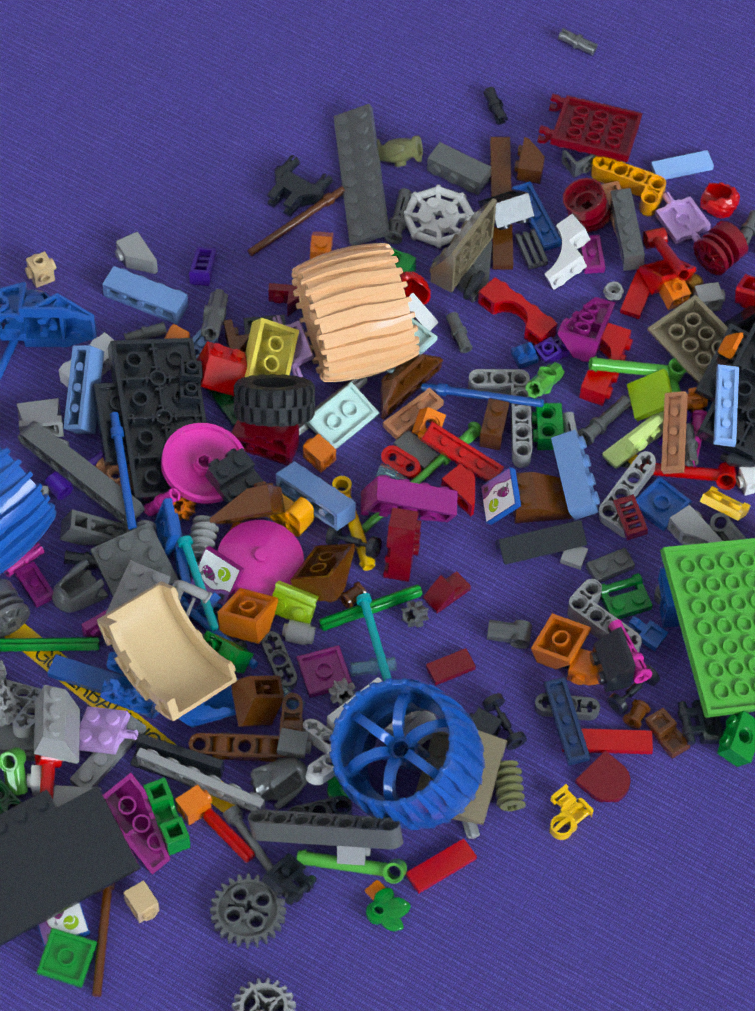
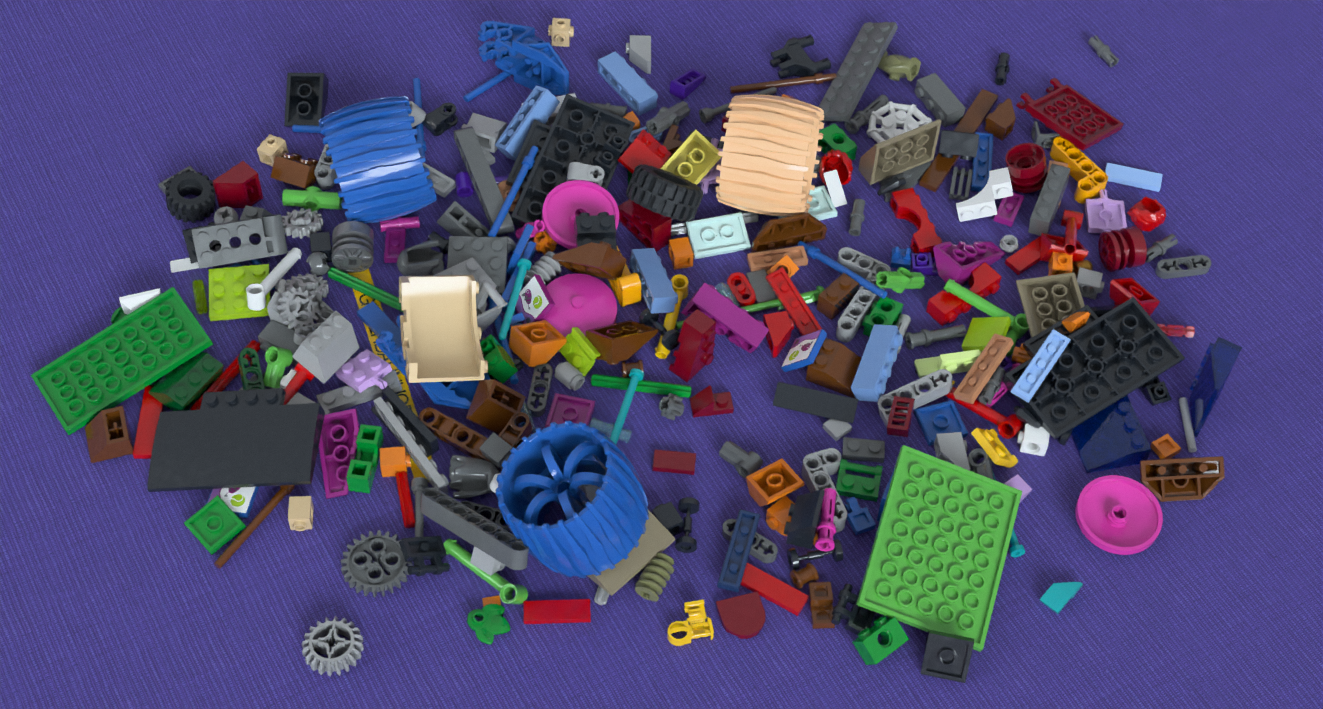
camera: 30 degrees right, 5 degrees down
(179, 417) = (585, 172): none -> light grey piece
(246, 291) = (707, 114): none -> dark grey piece

